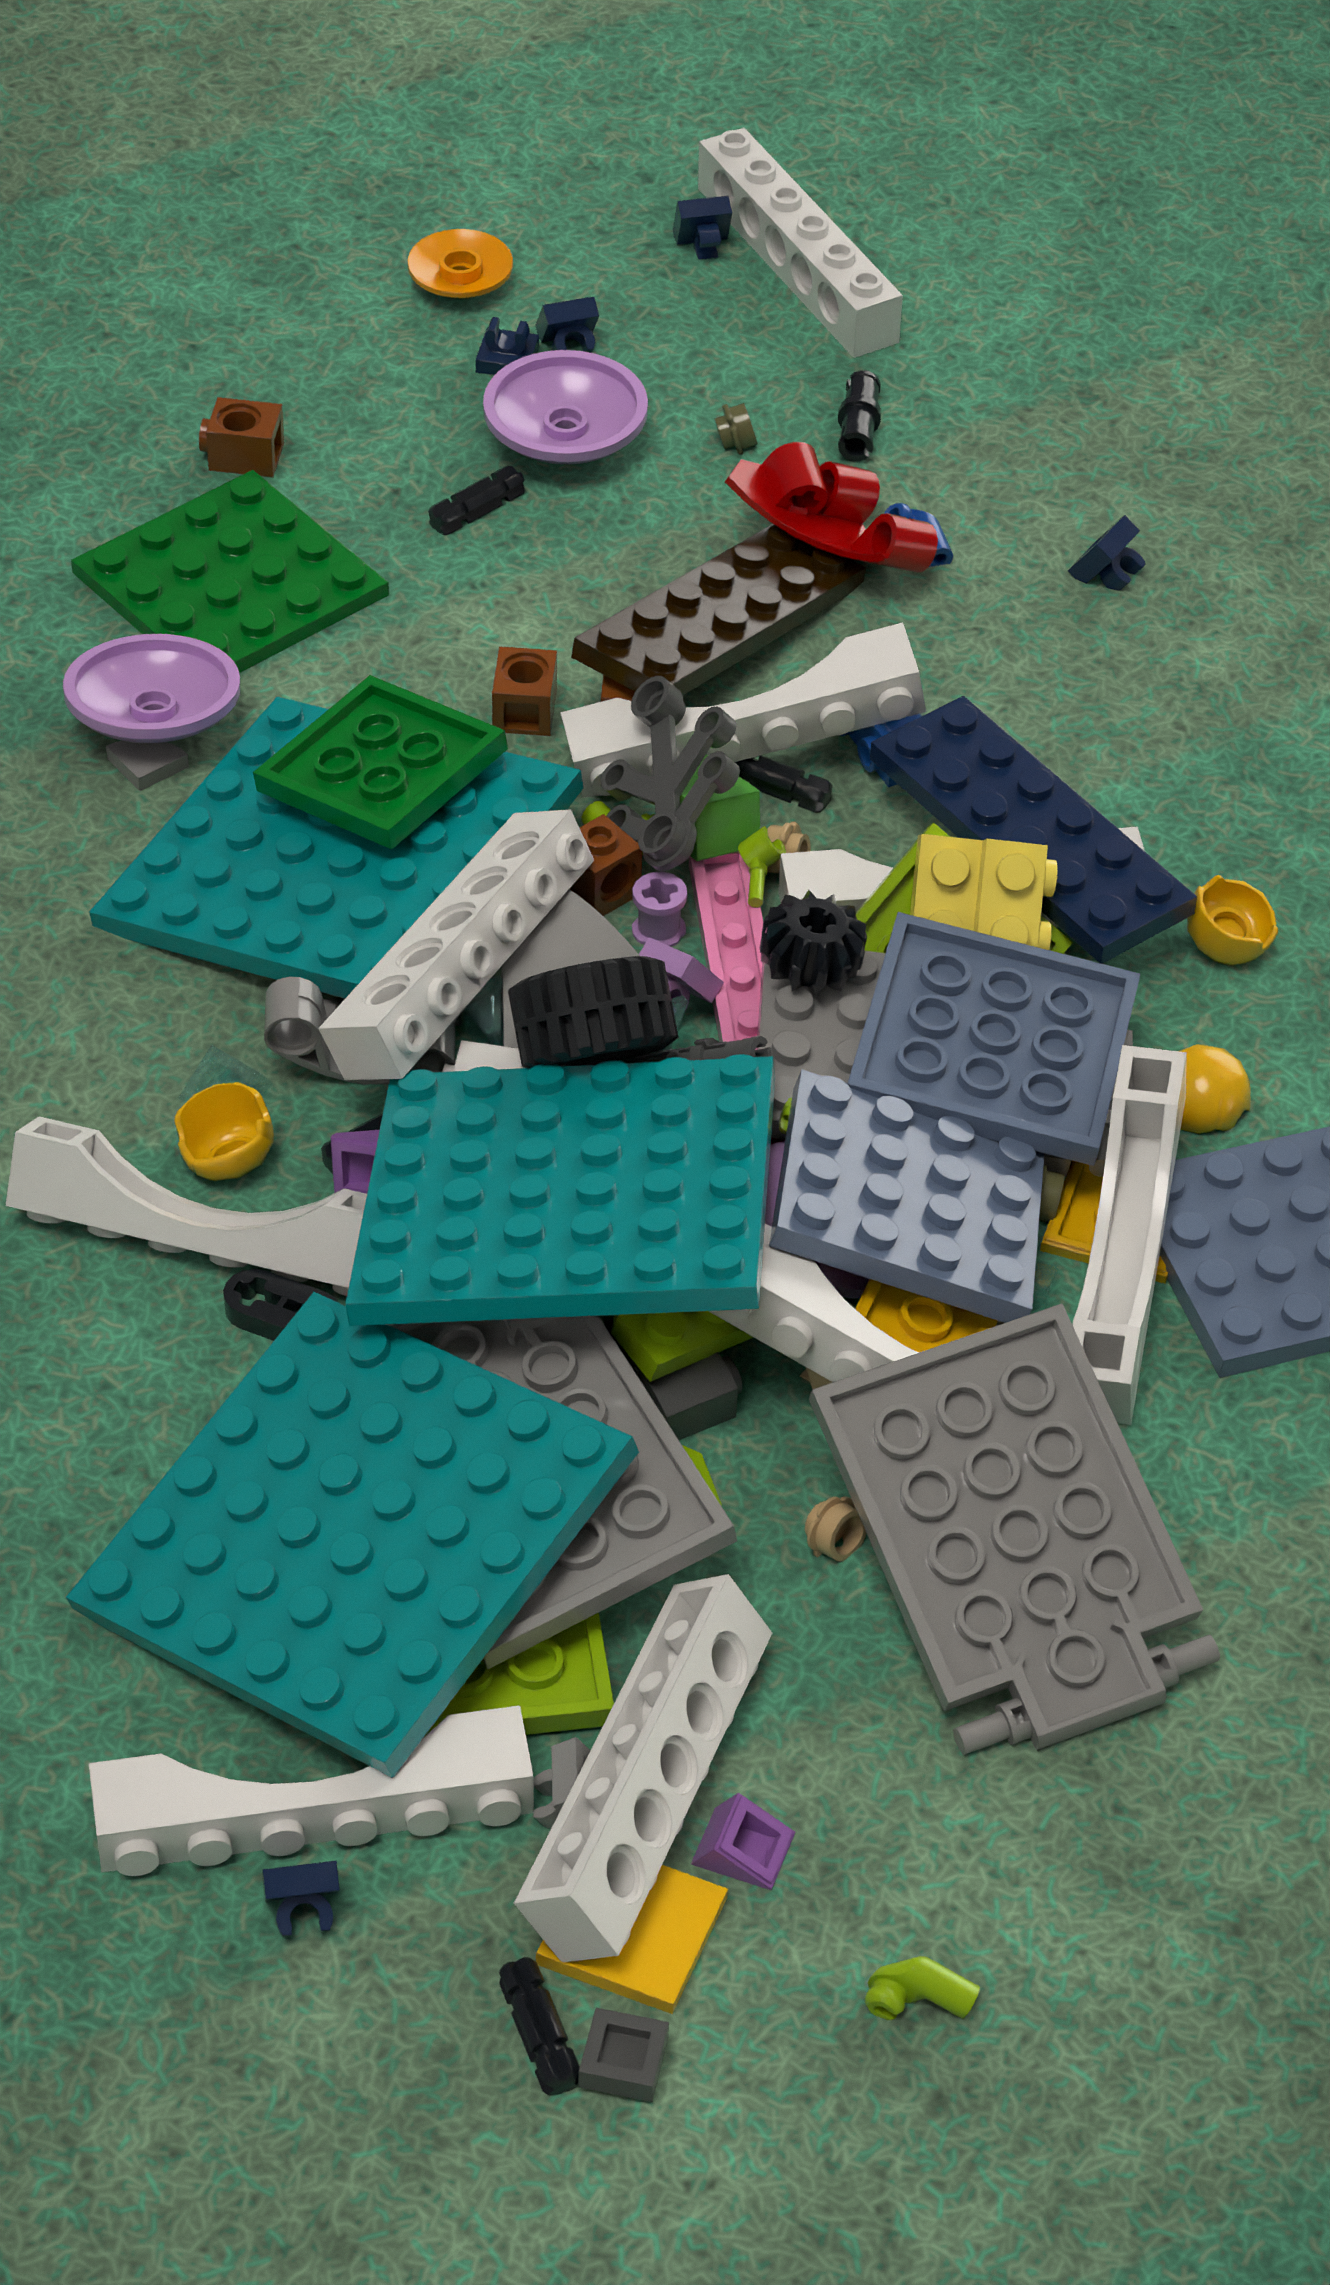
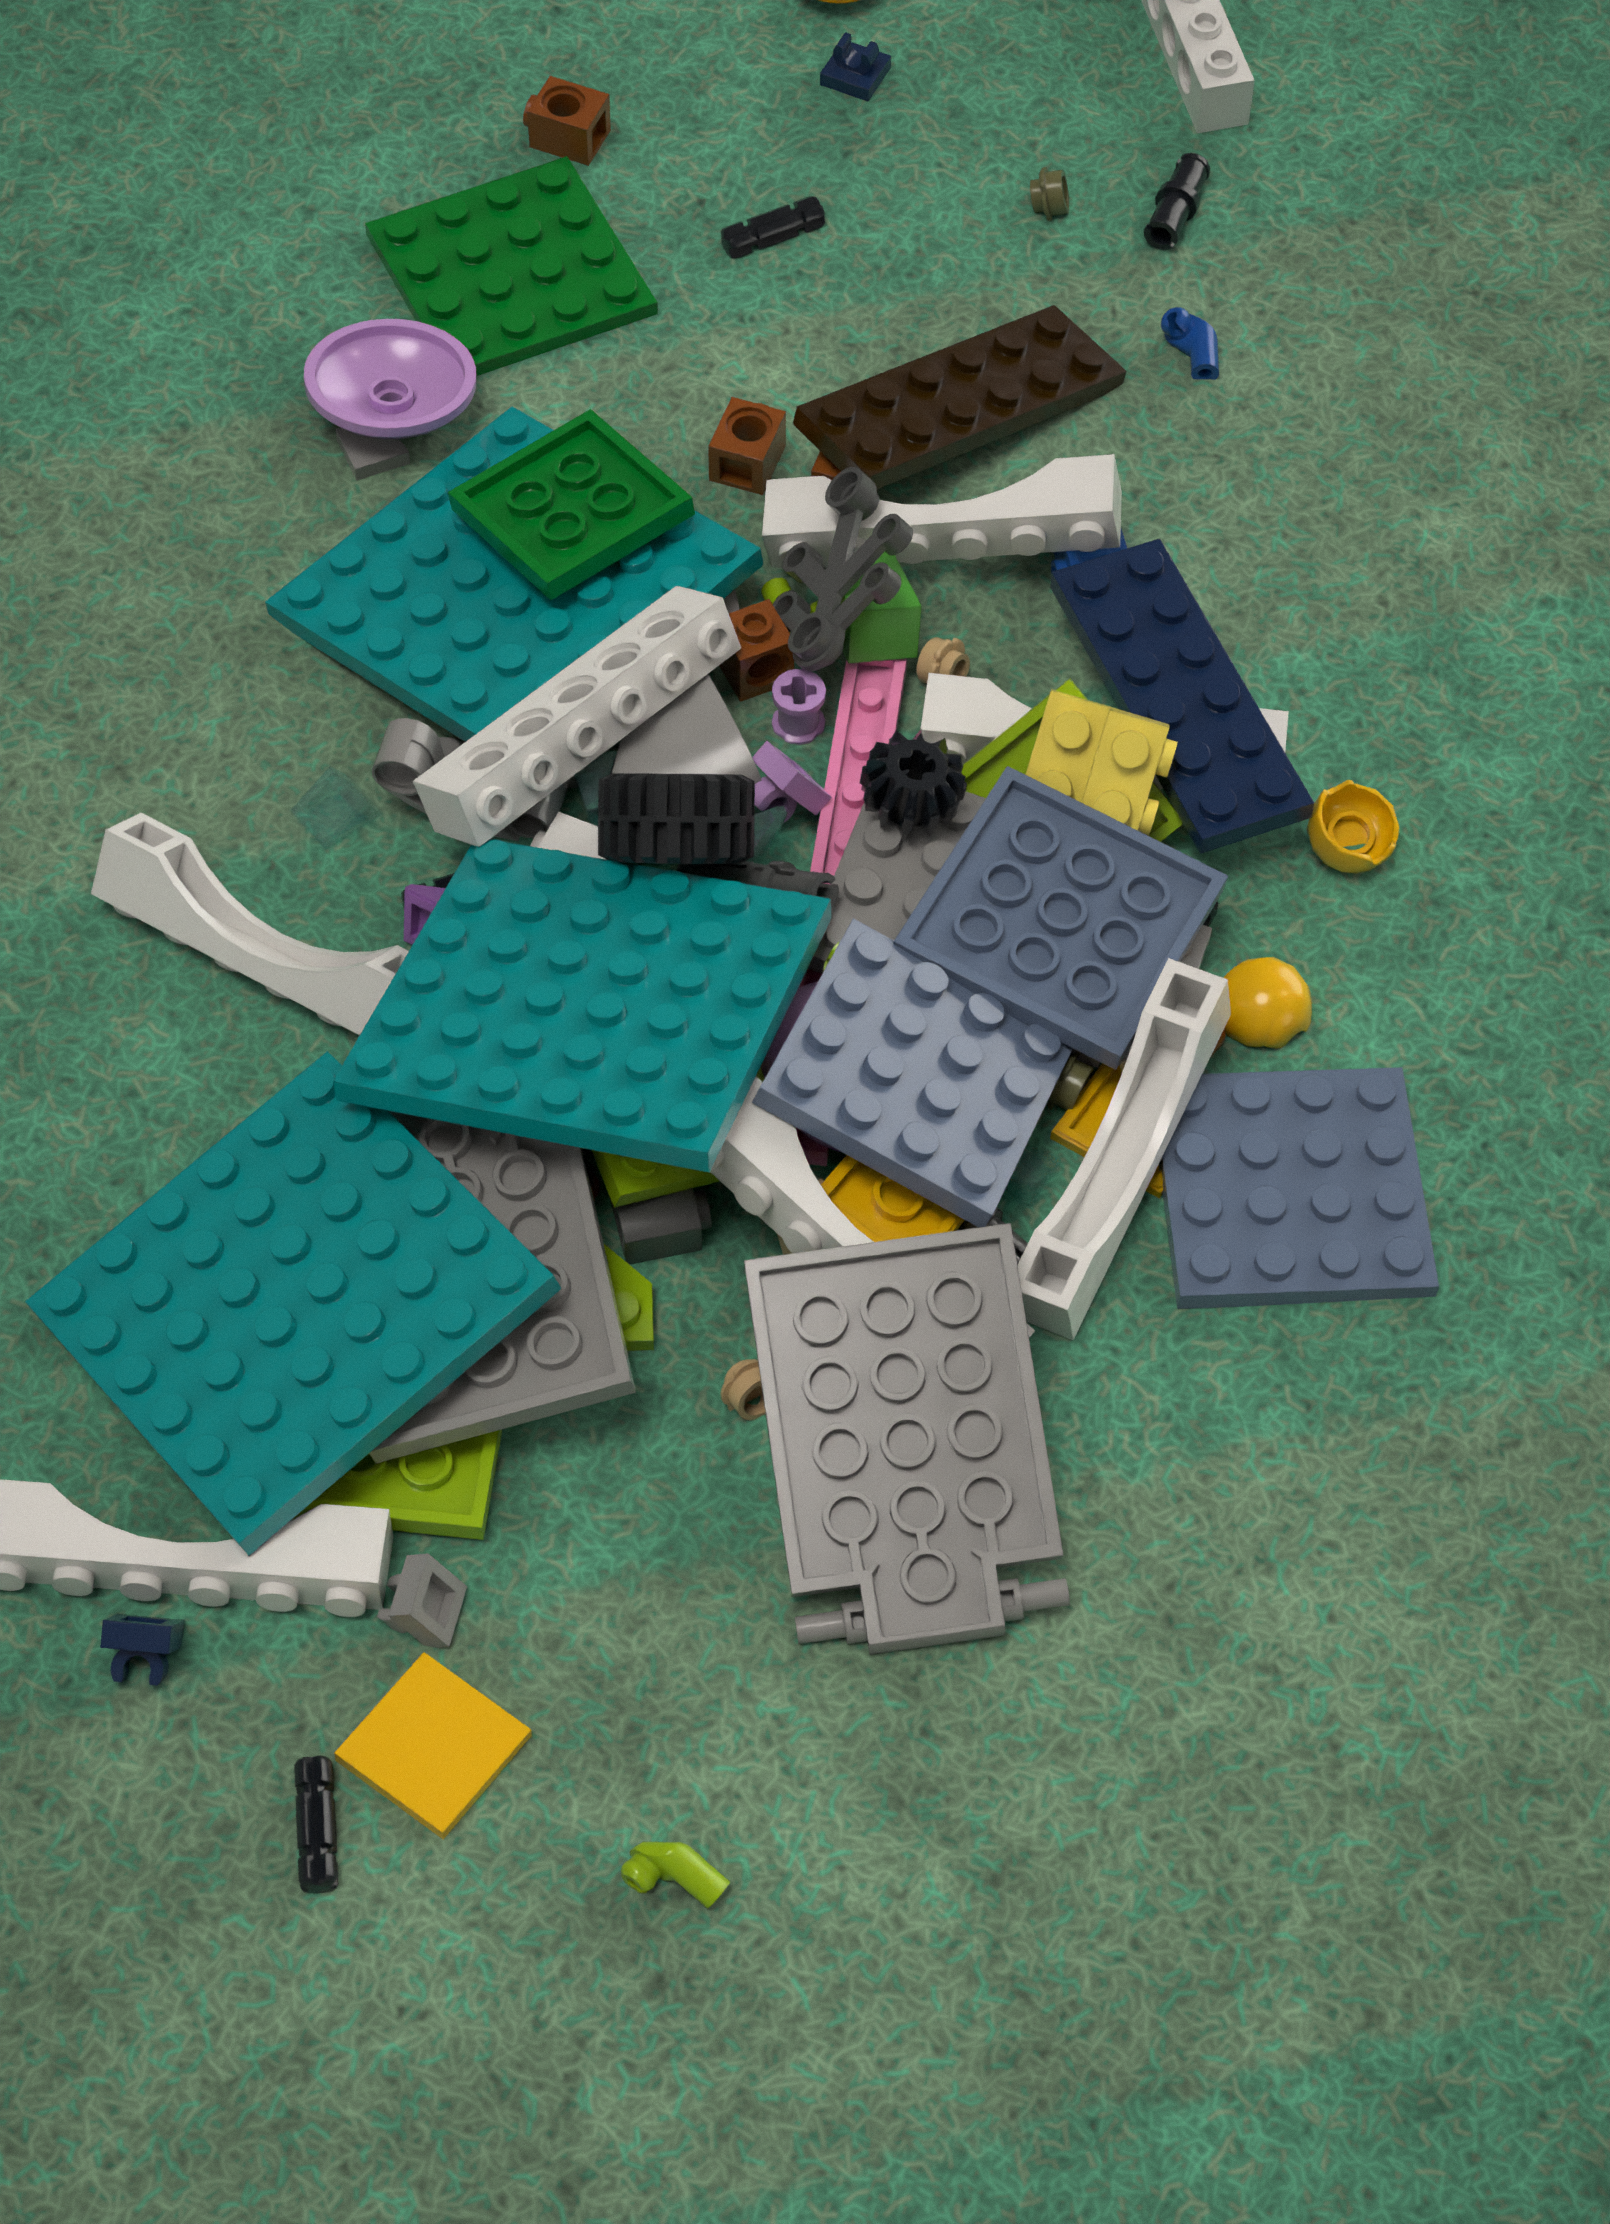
camera: 15 degrees right, 10 degrees up
(224, 1131) = (320, 846): yellow hair -> none
(266, 1317) = (316, 1034): black beam -> none
(565, 406) = (884, 143): lavender dish -> none
(568, 321) = (922, 47): dark blue tile -> none
(623, 2054) = (380, 1872): dark grey plate -> none
(644, 1770) = (483, 1598): white brick -> none
(744, 1843) = (563, 1687): medium lavender slope -> none
(758, 854) = (907, 669): lime hand -> none
(786, 782) = (967, 589): black axle -> none
(829, 507) = (1104, 304): red panel -> none
(1110, 557) = (1370, 401): dark blue tile -> none

